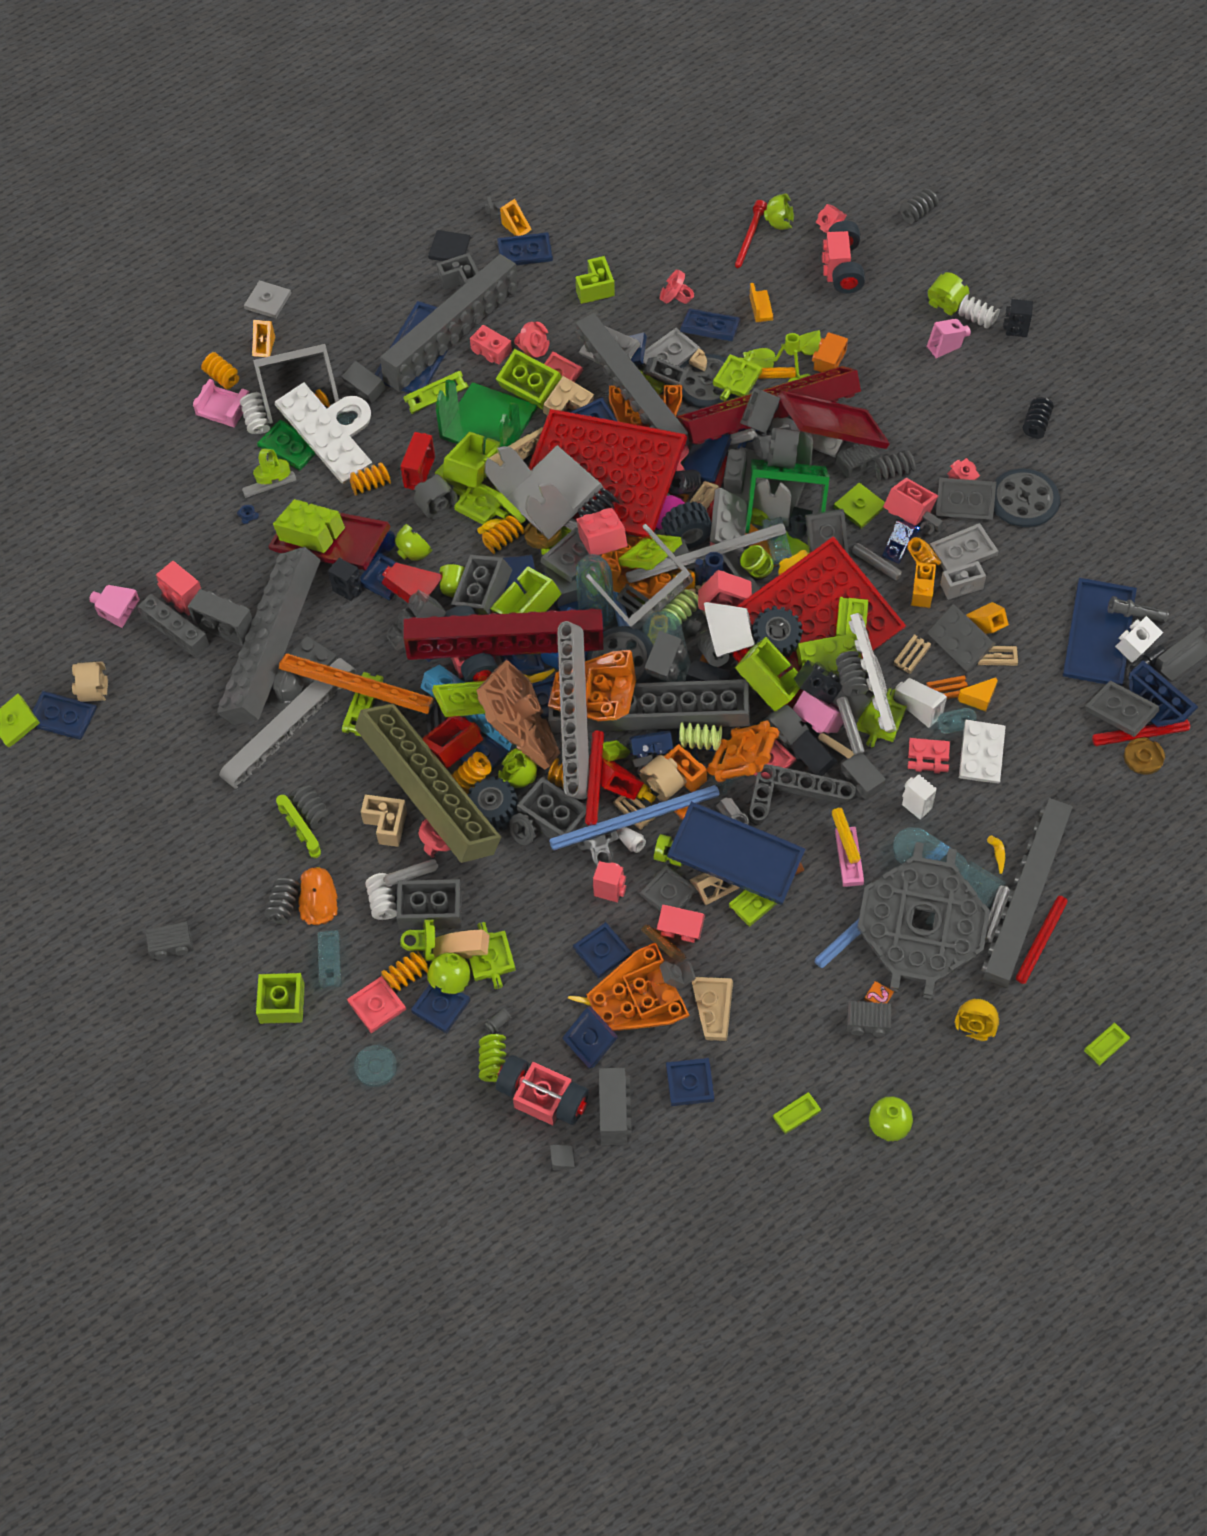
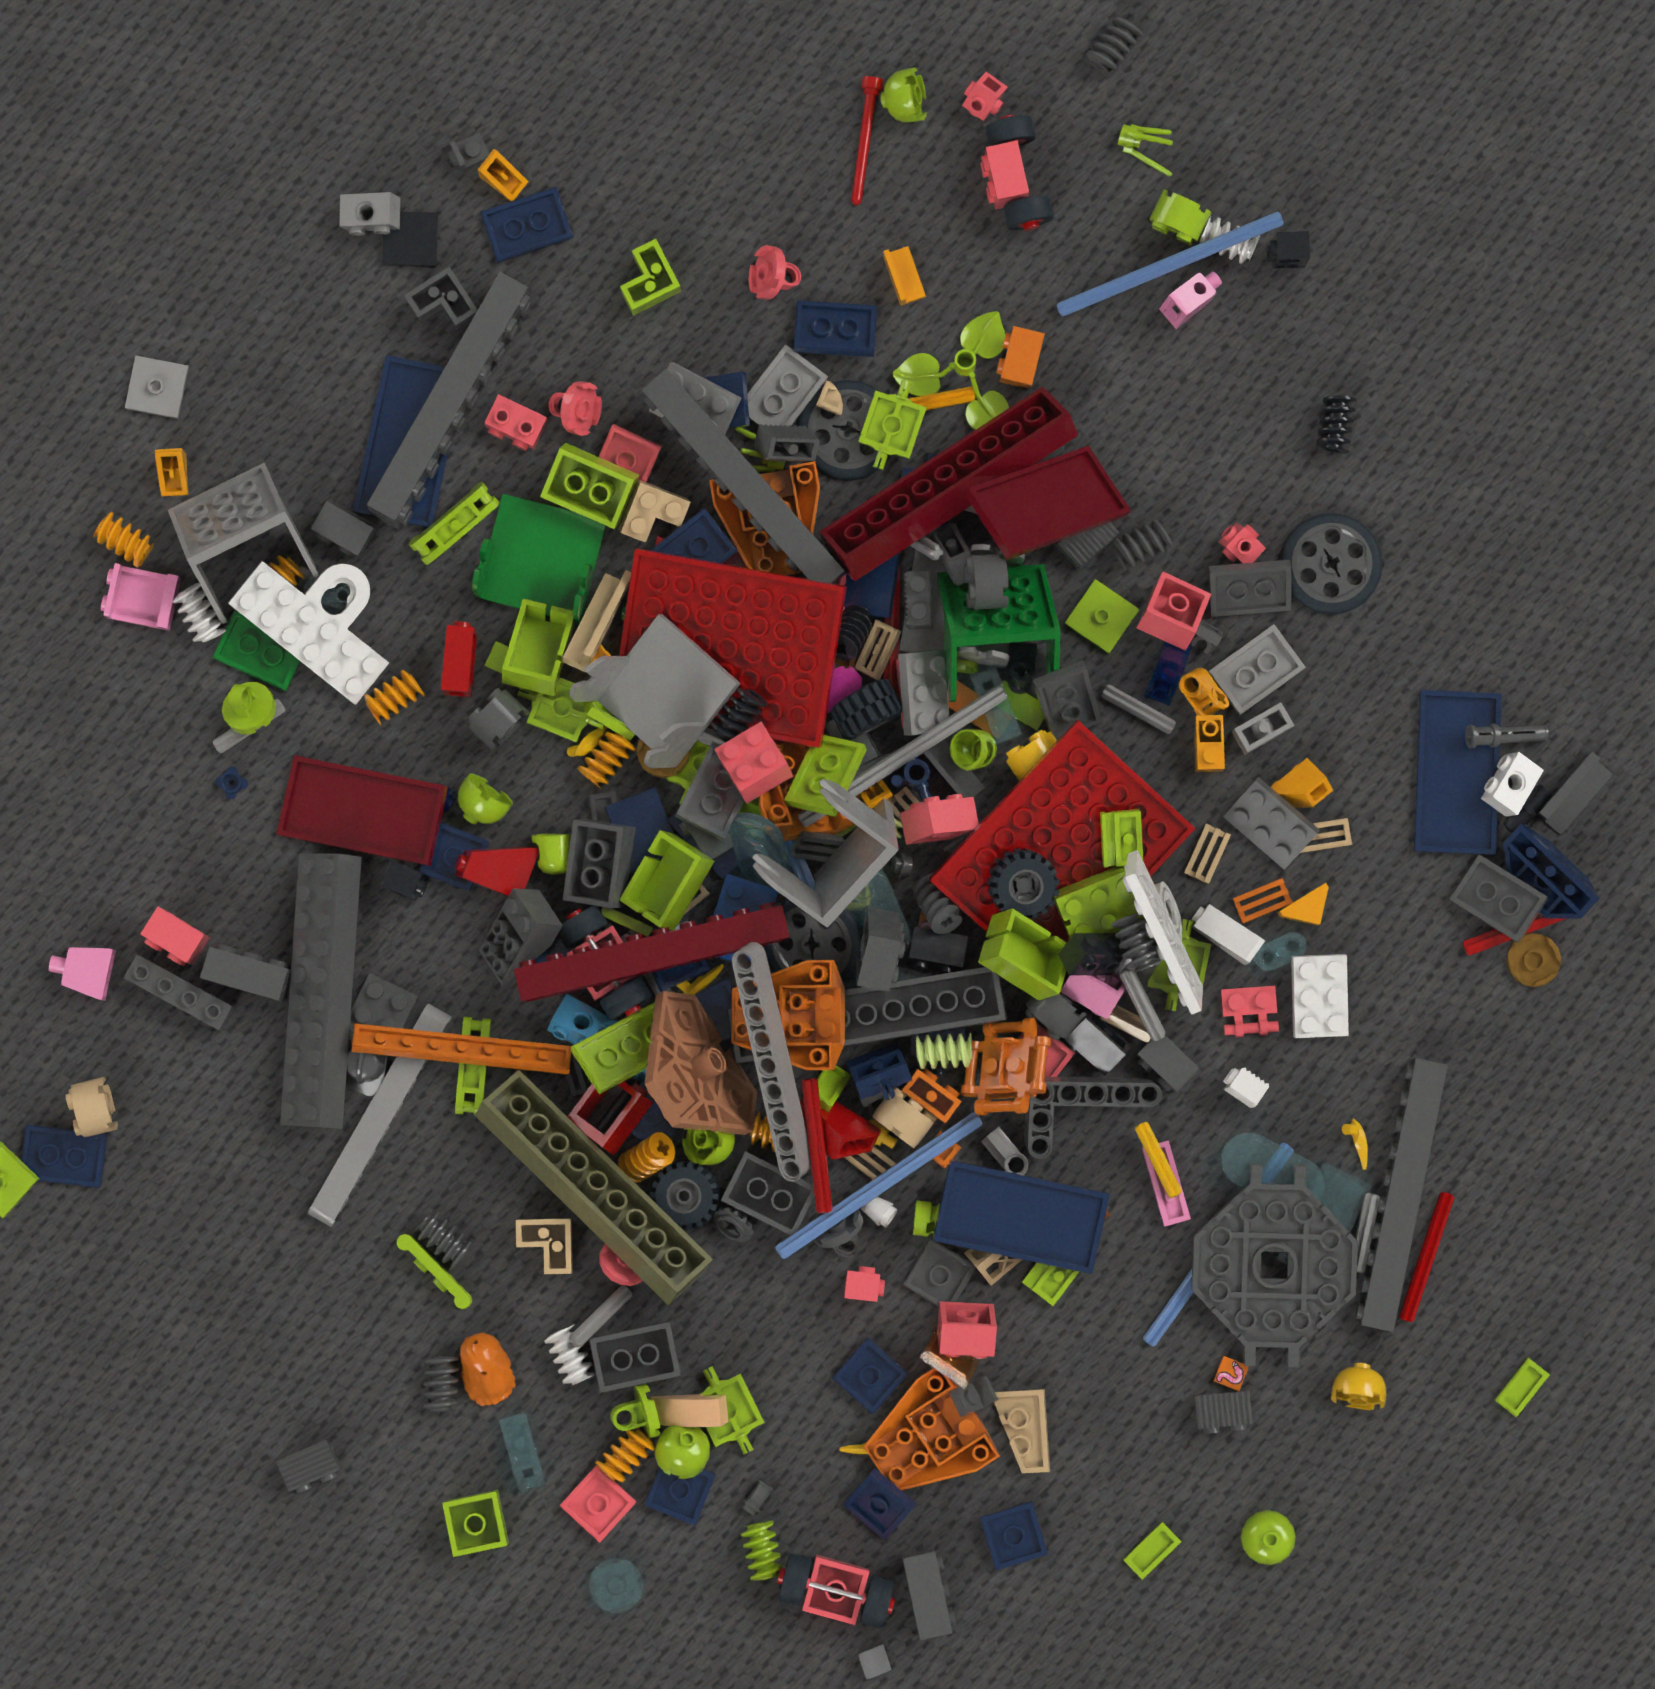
camera: 20 degrees left, 25 degrees up
(307, 525) = (331, 804): lime piece -> none
(427, 225) = (356, 207): none -> light grey brick
(728, 628) = (957, 888): white slope -> none
(760, 410) = (942, 518): dark grey brick -> none
(923, 253) = (1133, 135): none -> lime plant
(938, 314) = (1170, 264): none -> medium blue axle

